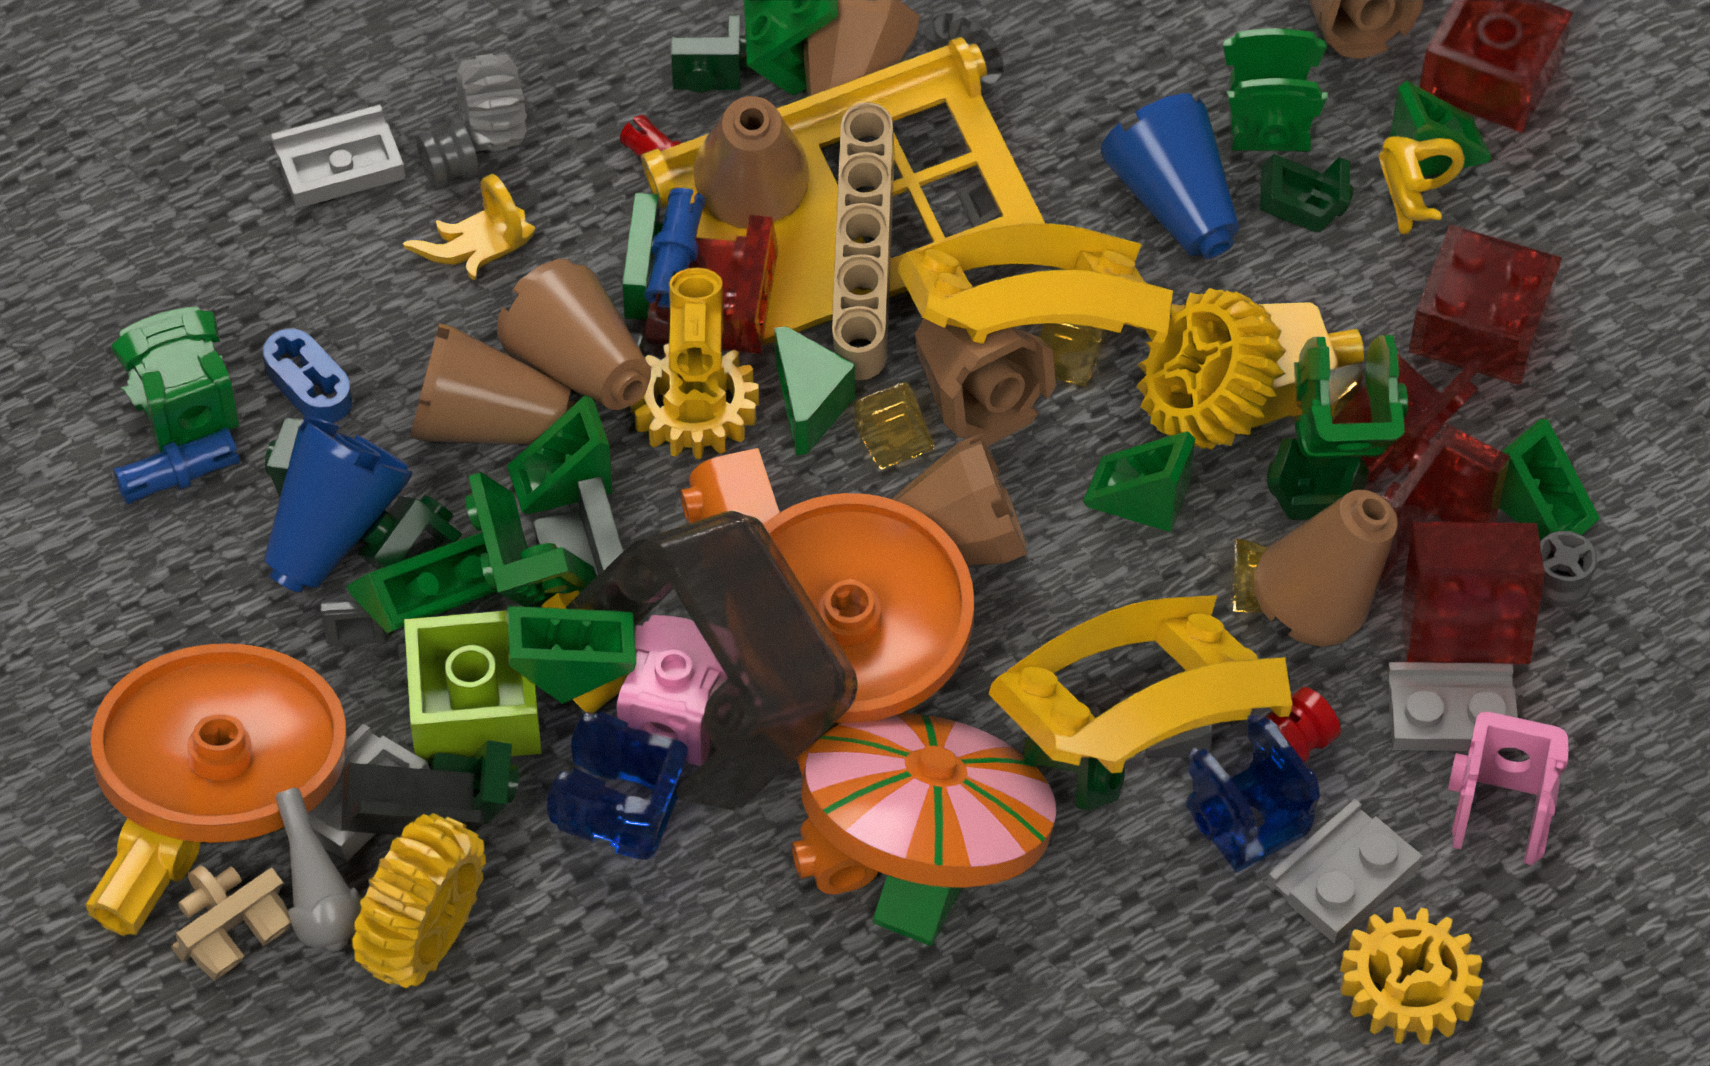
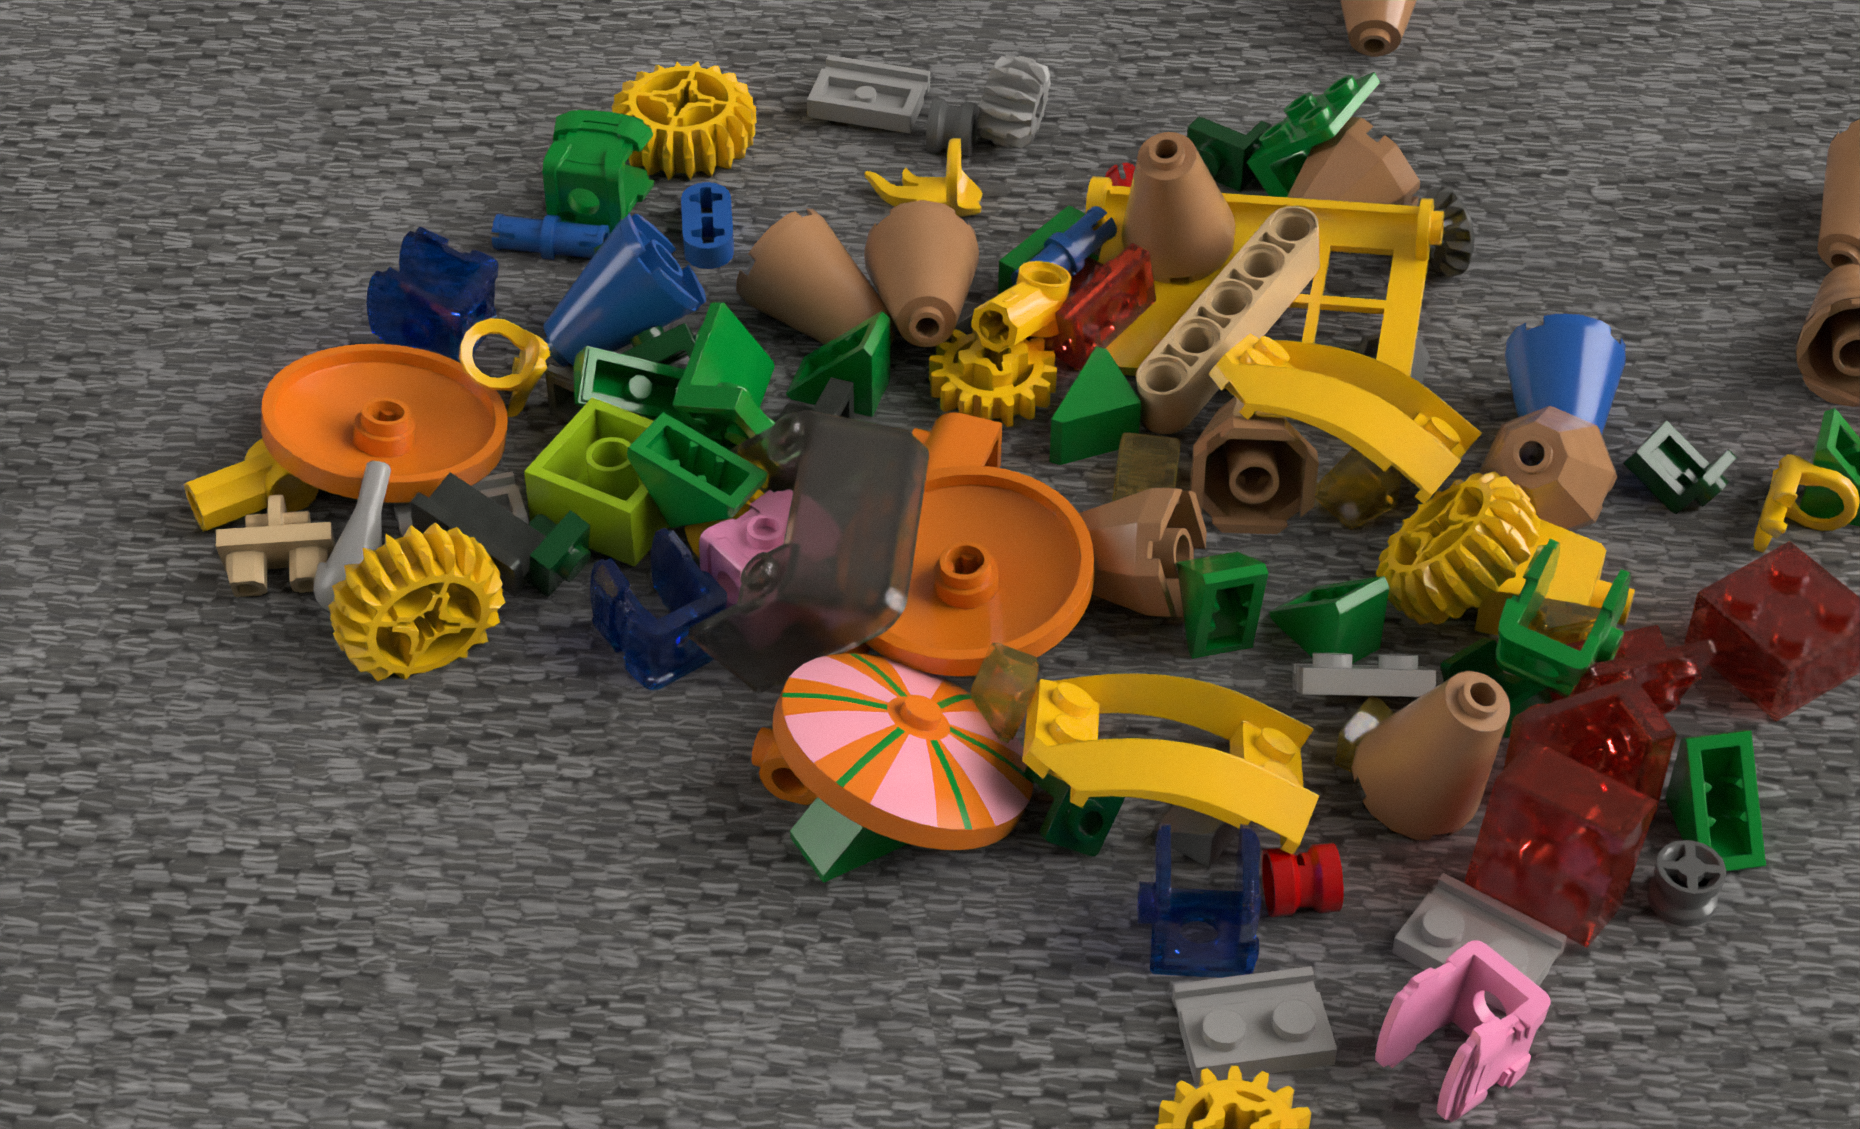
camera: 35 degrees right, 10 degrees down
(124, 567) = (432, 295): none -> clear blue piece
(215, 248) = (694, 117): none -> yellow gear
(302, 618) = (526, 368): none -> yellow piece
(969, 700) = (1005, 688): none -> clear yellow slope
(1060, 515) = (1221, 602): none -> green slope
(1199, 239) = (1574, 470): none -> medium nougat cone
(1215, 527) = (1338, 676): none -> light grey plate
(1270, 89) = (1711, 375): green piece -> none

